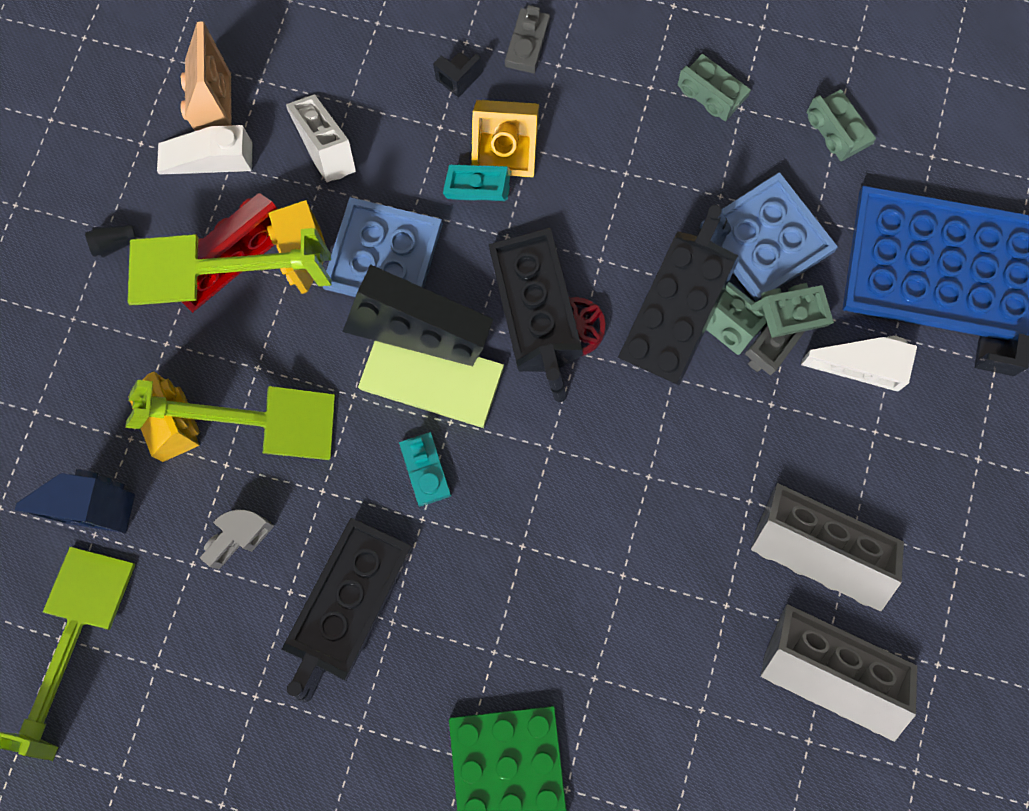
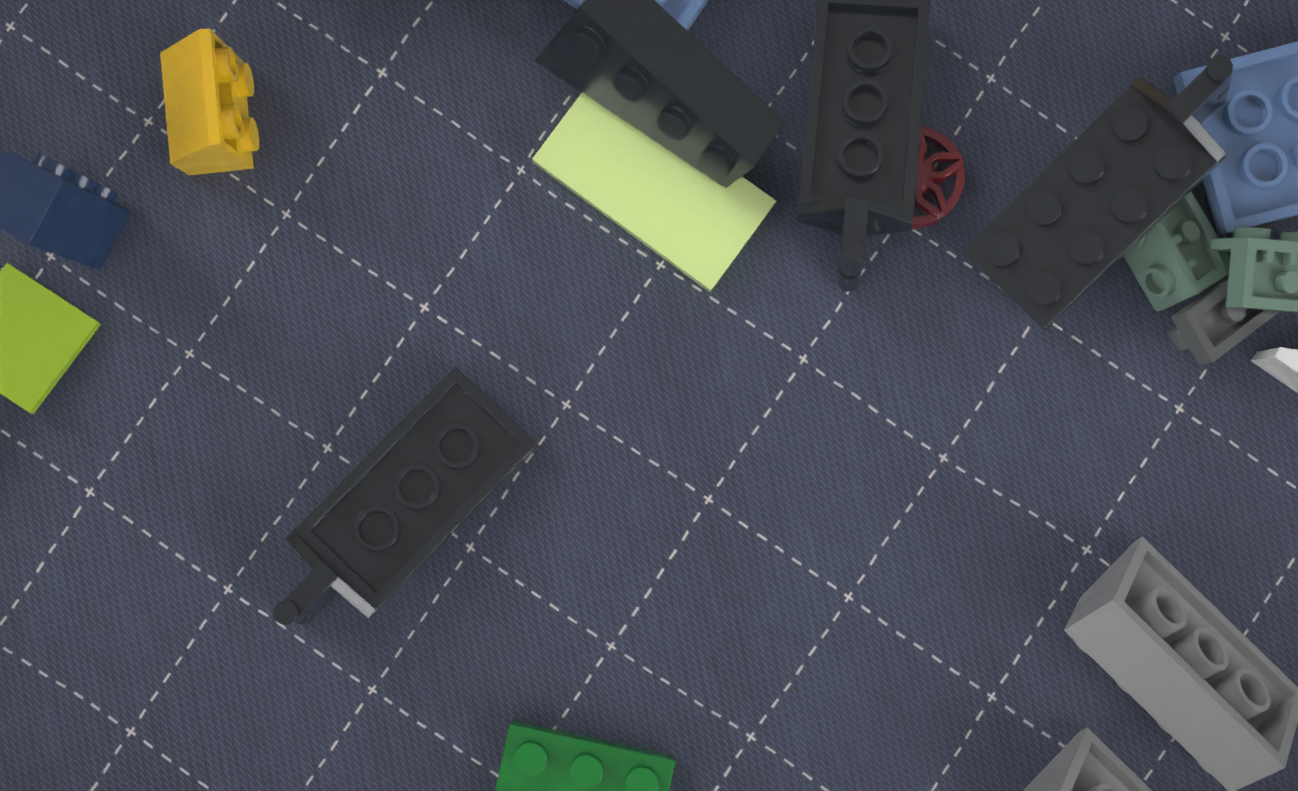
camera: 20 degrees right, 10 degrees up
(239, 529) = (274, 327): light grey brick -> none
(293, 425) = (411, 182): lime piece -> none
(425, 469) = (596, 327): teal plate -> none

